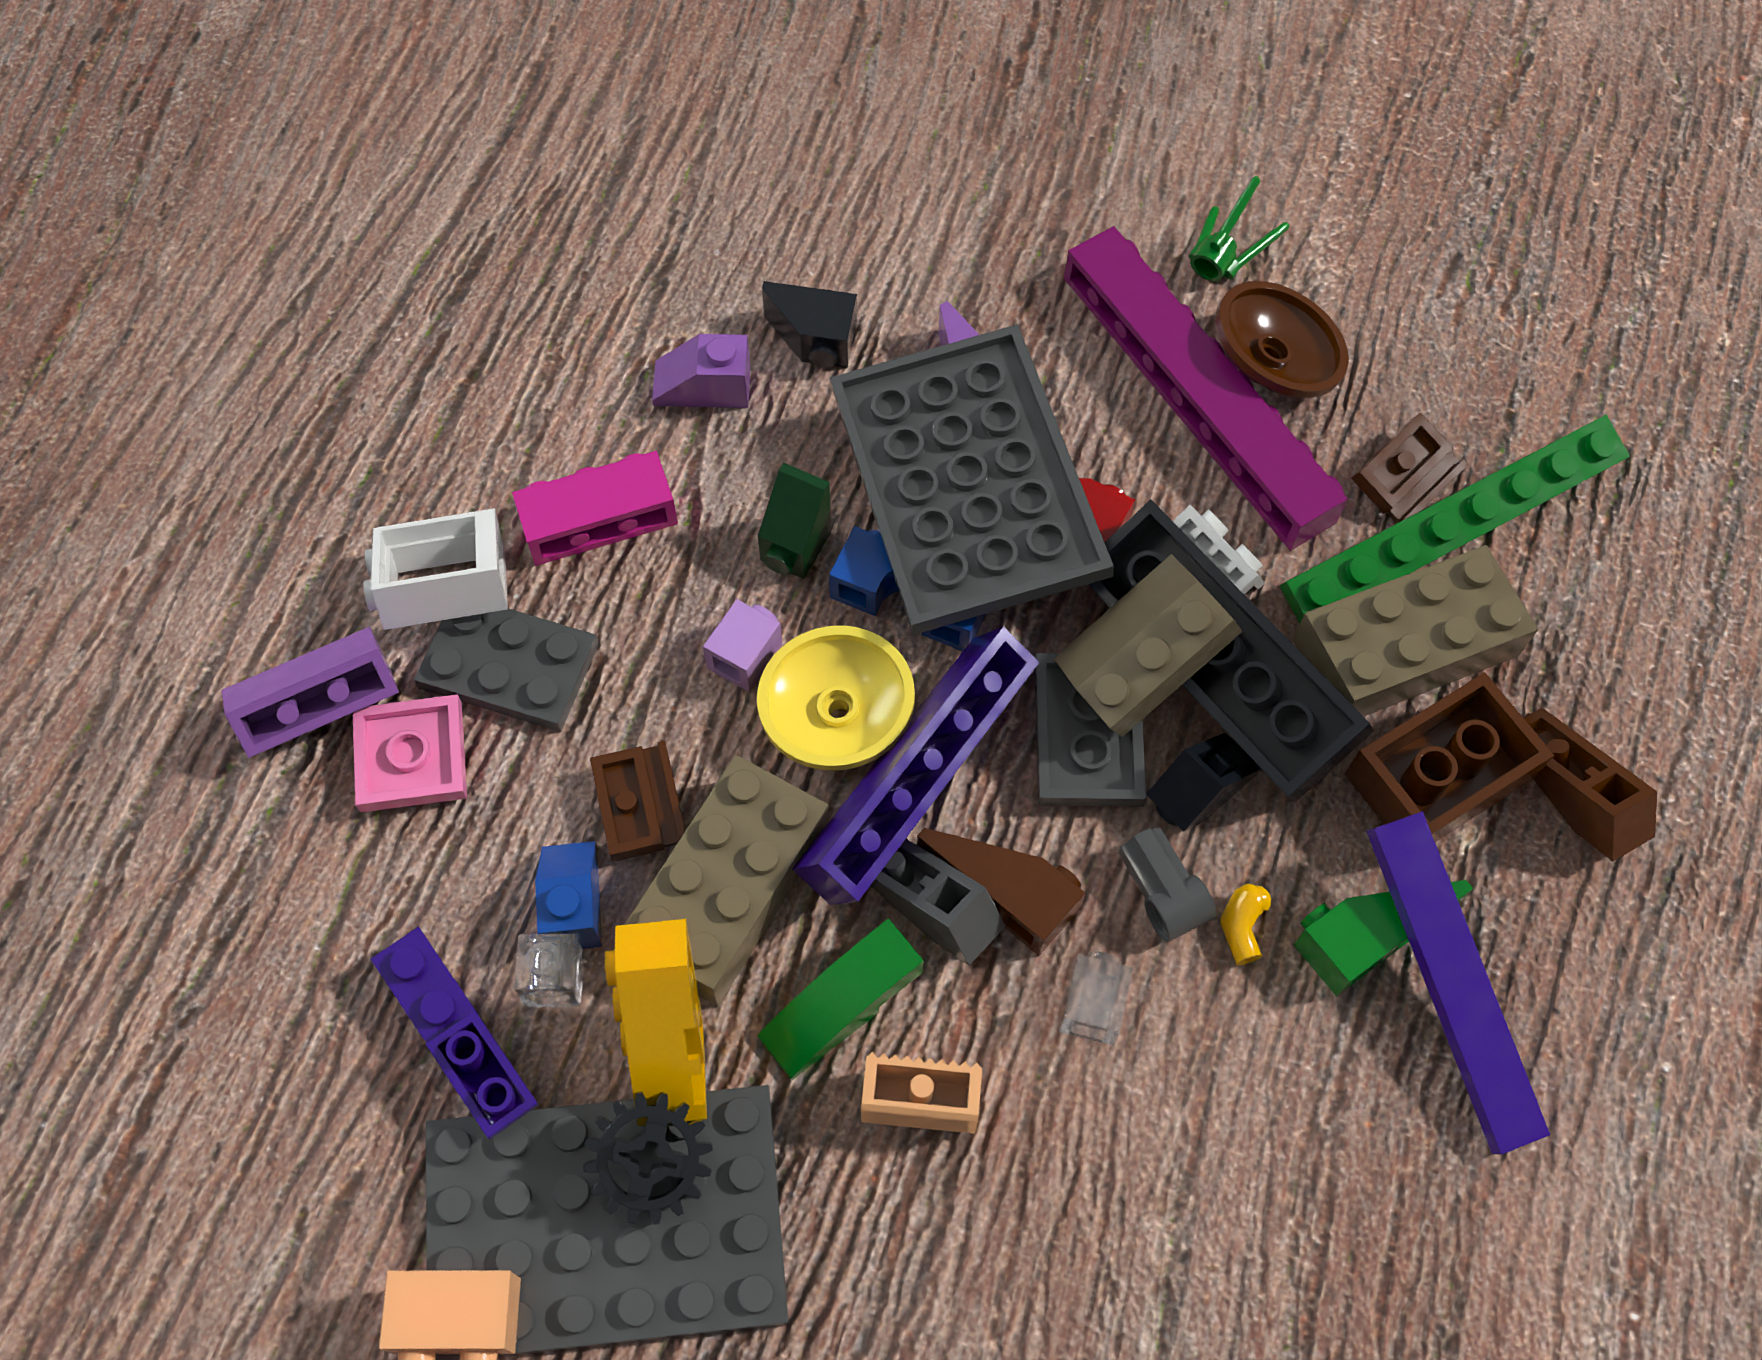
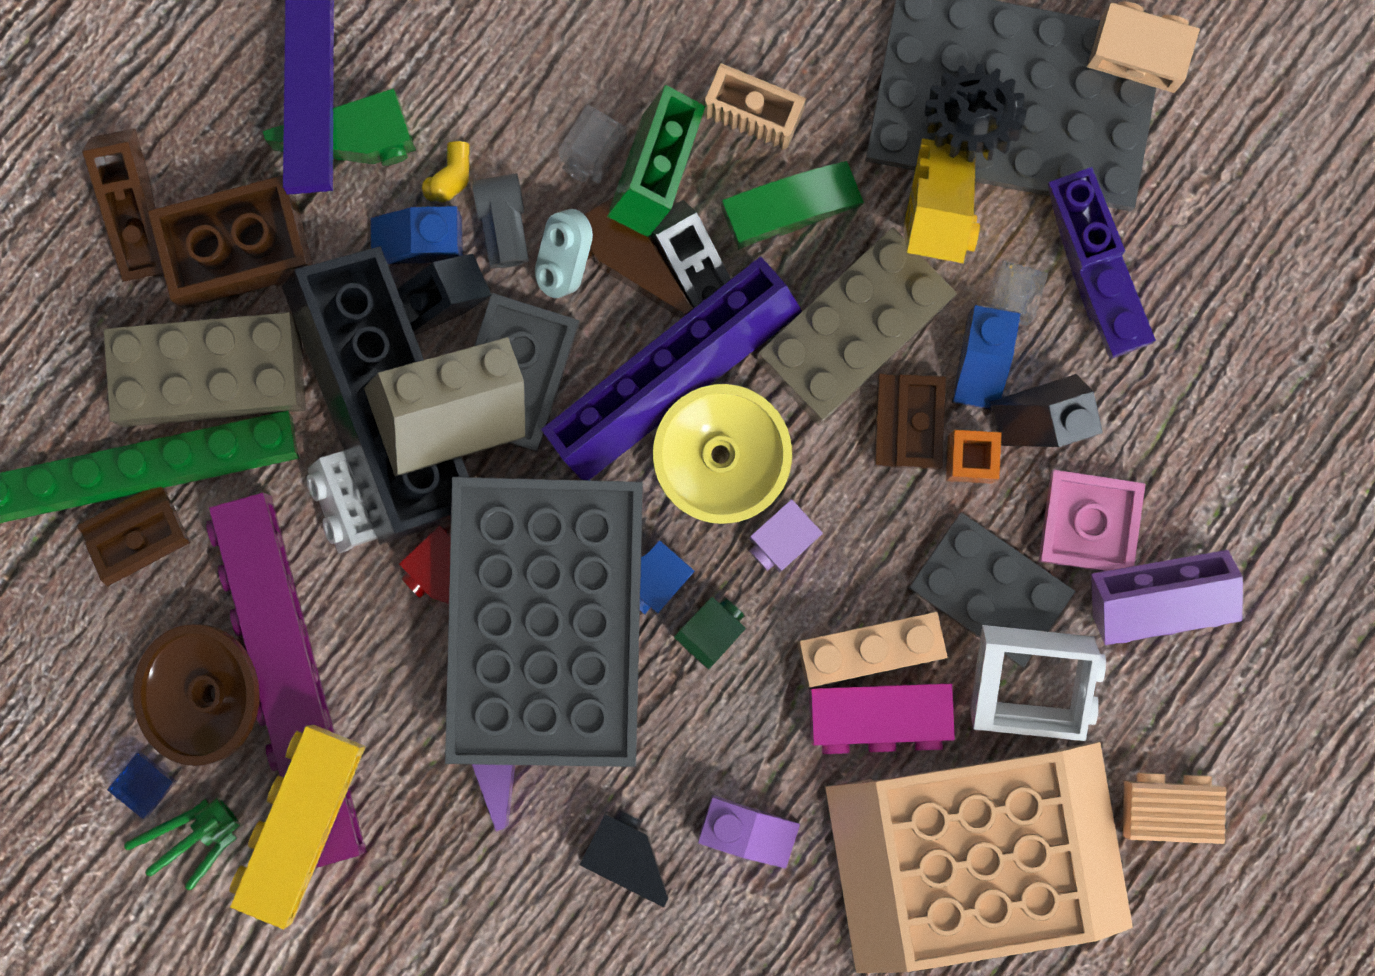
camera: 165 degrees left, 20 degrees up
(268, 501) = (1174, 811): none -> light nougat brick
(455, 399) = (979, 861): none -> light nougat slope
(480, 845) = (1048, 414): none -> black slope
(556, 773) = (973, 456): none -> orange brick
(621, 560) = (872, 649): none -> light nougat brick
(1014, 981) = (656, 161): none -> green brick
(1083, 859) = (562, 260): none -> light aqua plate
(1136, 242) = (296, 827): none -> yellow brick
(1248, 839) = (418, 234): none -> blue slope
(1296, 266) = (141, 785): none -> clear blue plate

